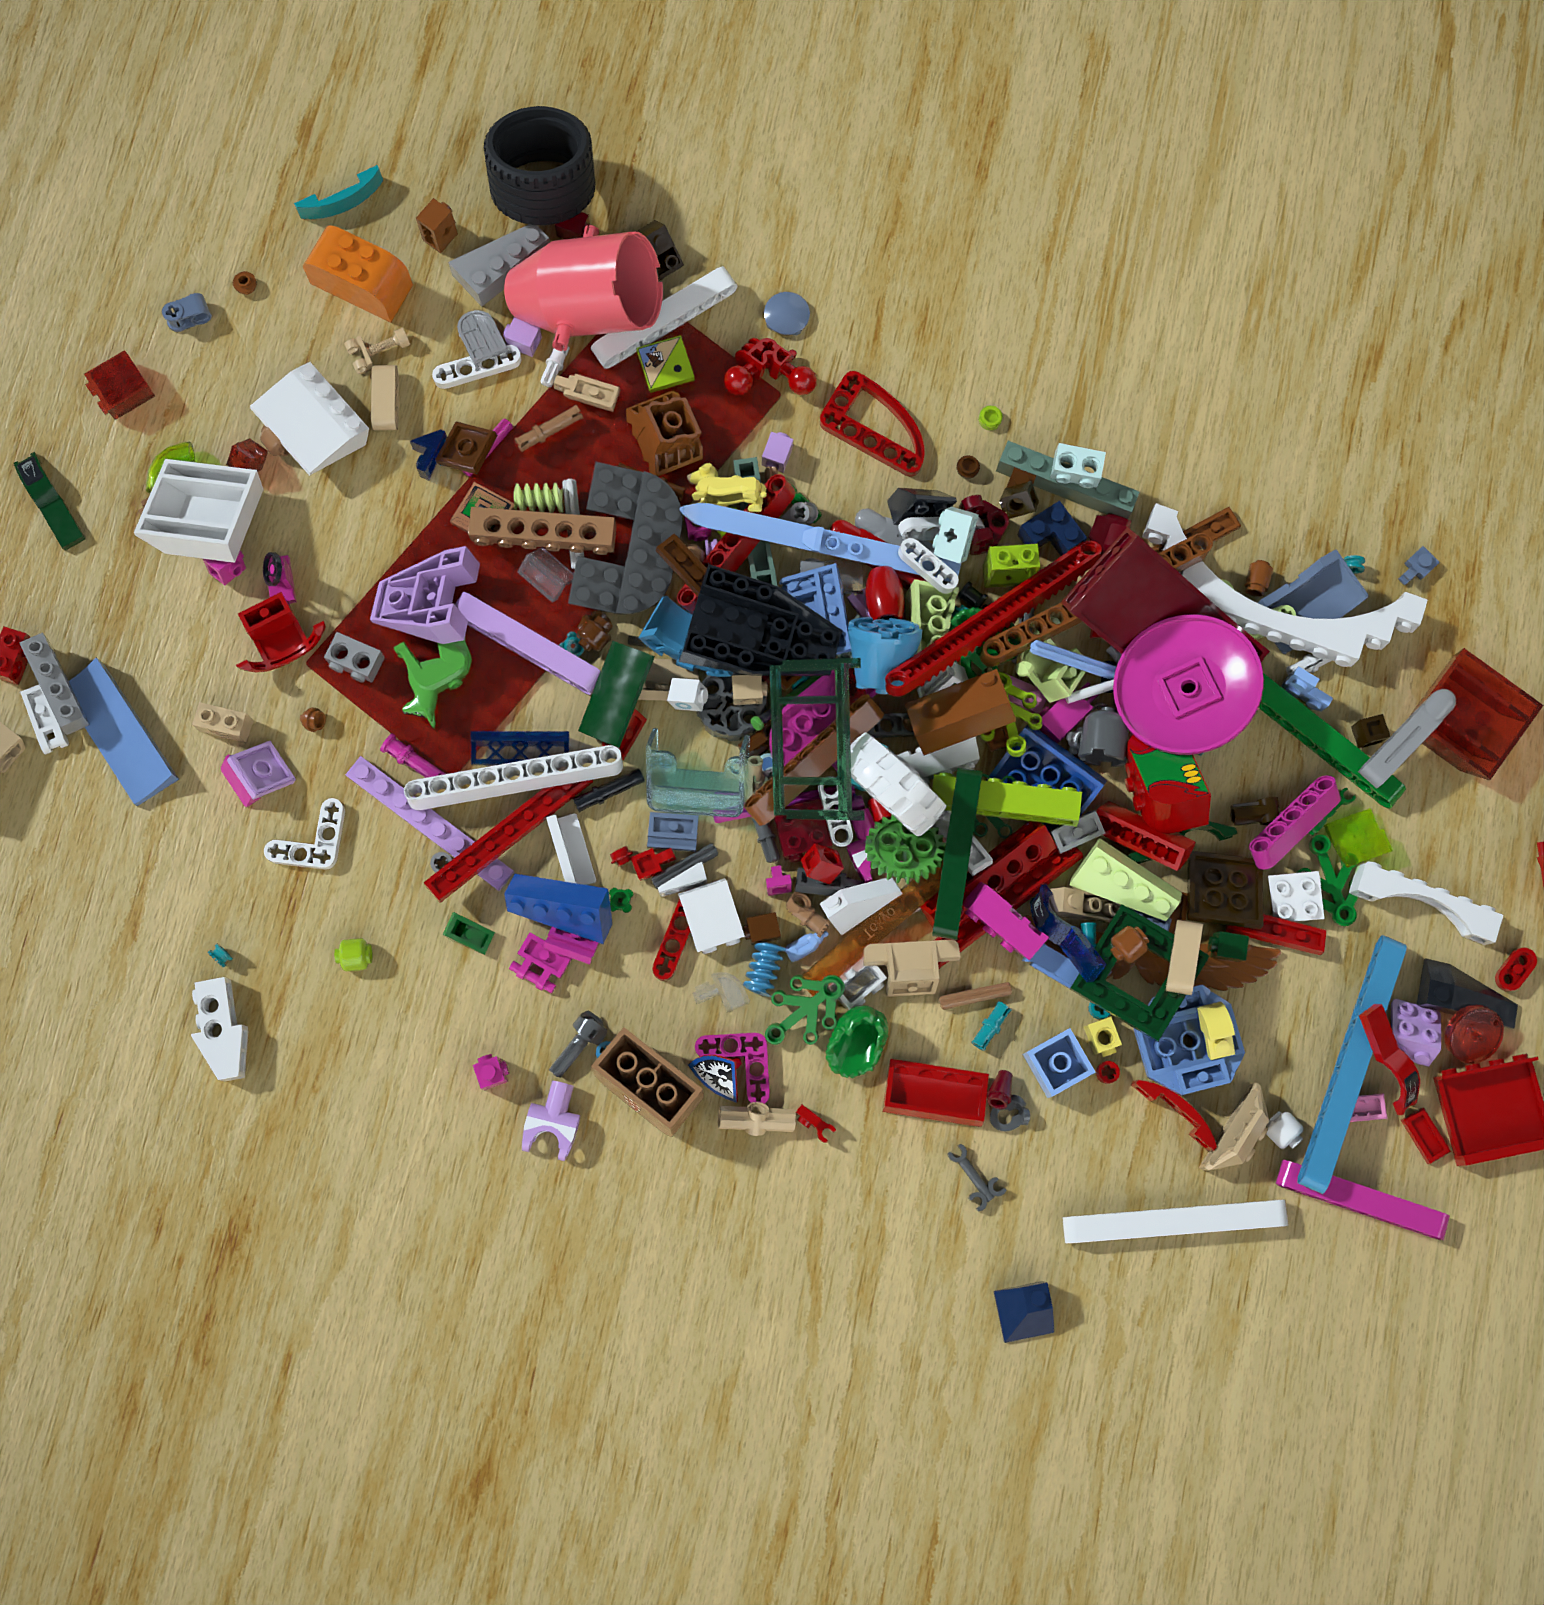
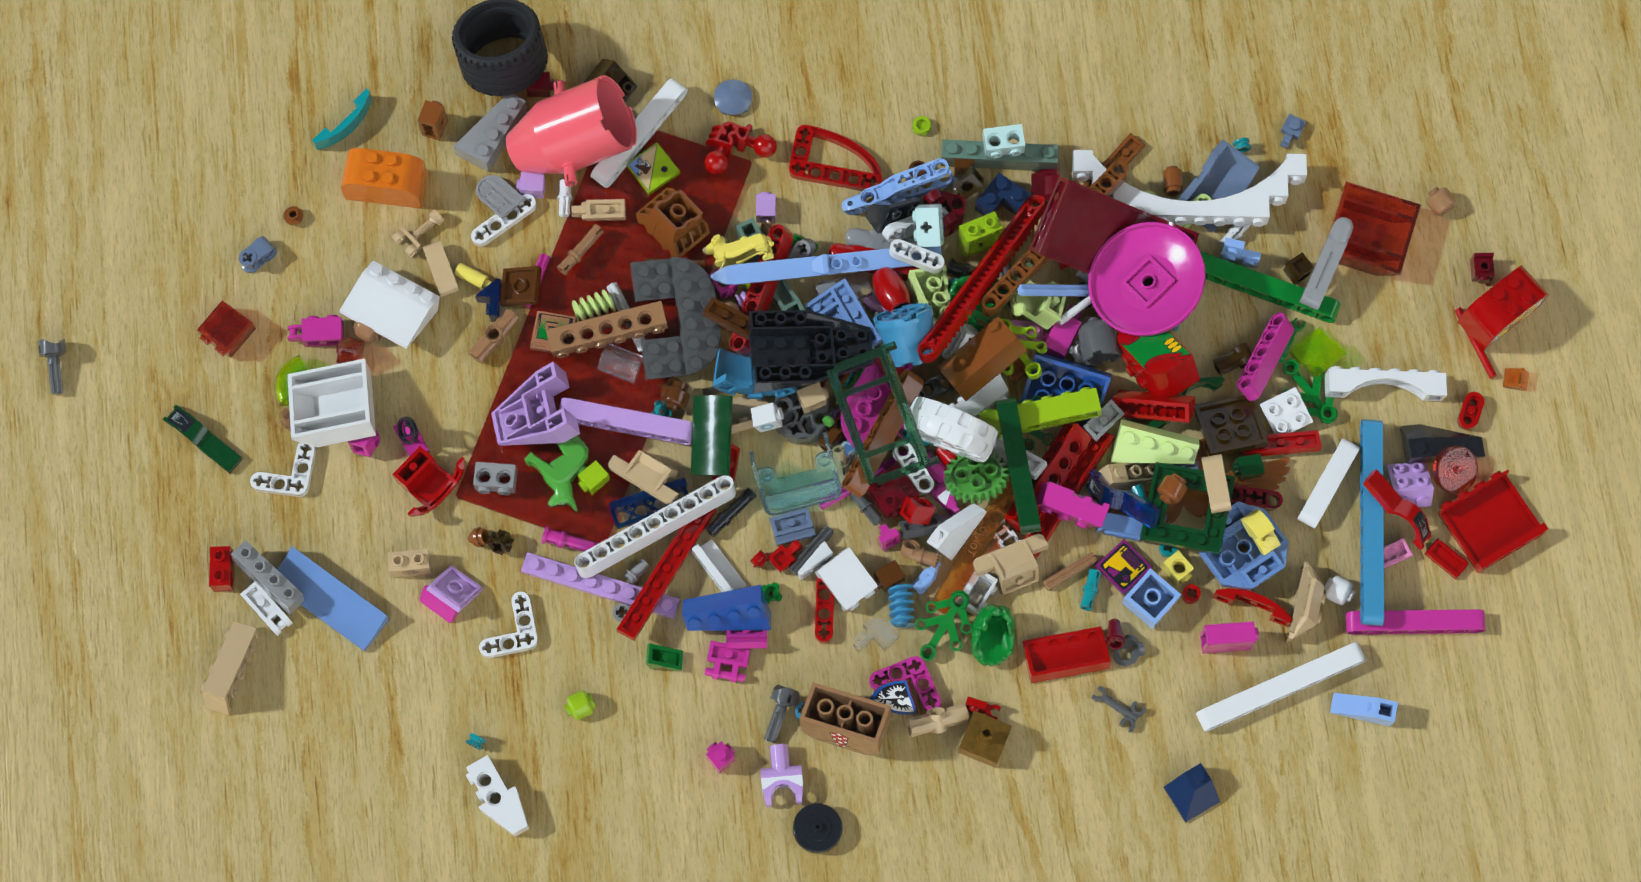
camera: 15 degrees left, 5 degrees down
(134, 581) = (295, 478): none -> white beam
(222, 422) = (318, 331): none -> dark pink brick
(334, 733) = (500, 542): none -> dark brown gear
(416, 417) = (472, 276): none -> light yellow cylinder
(428, 486) = (501, 326): none -> medium nougat piece
(464, 696) = (593, 478): none -> lime brick
(476, 821) = (633, 575): none -> light grey pin
(527, 712) = (647, 474): none -> tan plate
(571, 1197) = (817, 828): none -> black wheel
(804, 1160) = (984, 739): none -> pearl gold brick
(923, 928) = (1011, 534): none -> white piece
(929, 478) = (891, 188): none -> light blue piece
(1039, 1012) = (1123, 567): none -> tile
(1134, 1142) = (1228, 637): none -> dark pink brick
(1229, 995) = (1257, 493): none -> dark red beam
(1265, 1283) = (1364, 708): none -> light blue slope
(1316, 997) = (1328, 483): none -> white beam

